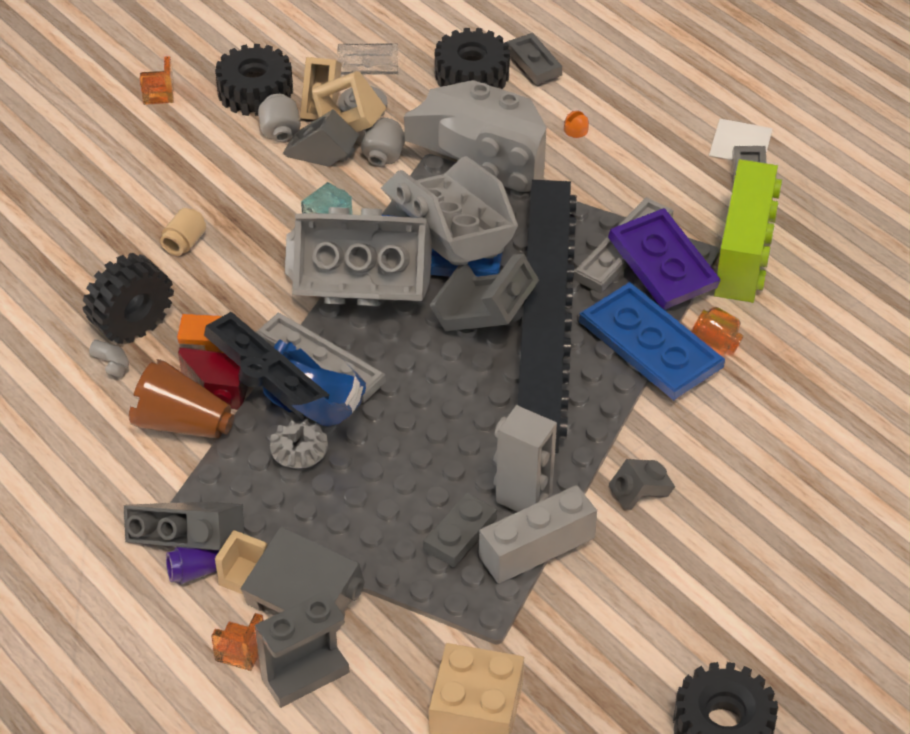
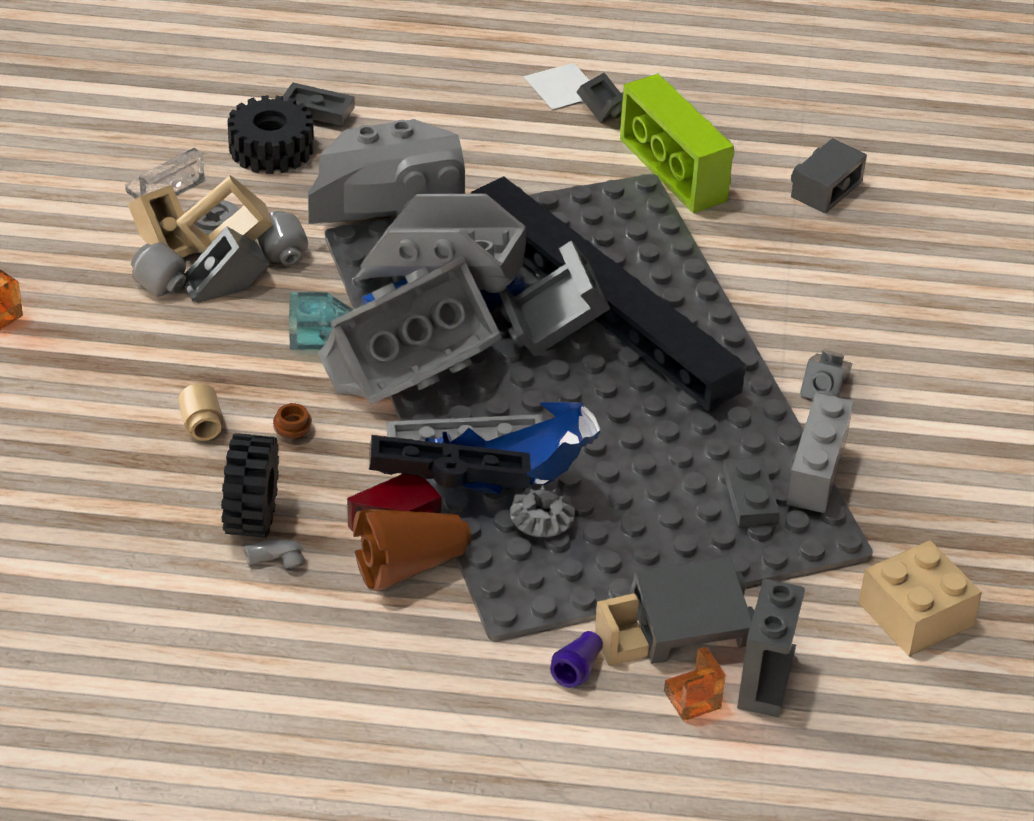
camera: 45 degrees left, 5 degrees down
(183, 524) = (535, 632): dark grey slope -> none
(192, 331) = (341, 476): orange panel -> none
(232, 274) = (292, 421): none -> dark orange plate
(251, 76) = (88, 250): black tyre -> none
(524, 459) = (766, 397): light grey brick -> none
(605, 261) = (589, 204): light grey tile -> none
(651, 340) = (705, 267): blue tile -> none
(664, 258) = (643, 198): dark purple plate -> none
(718, 330) = (741, 233): clear orange head -> none
(851, 328) = (828, 175): none -> dark grey brick

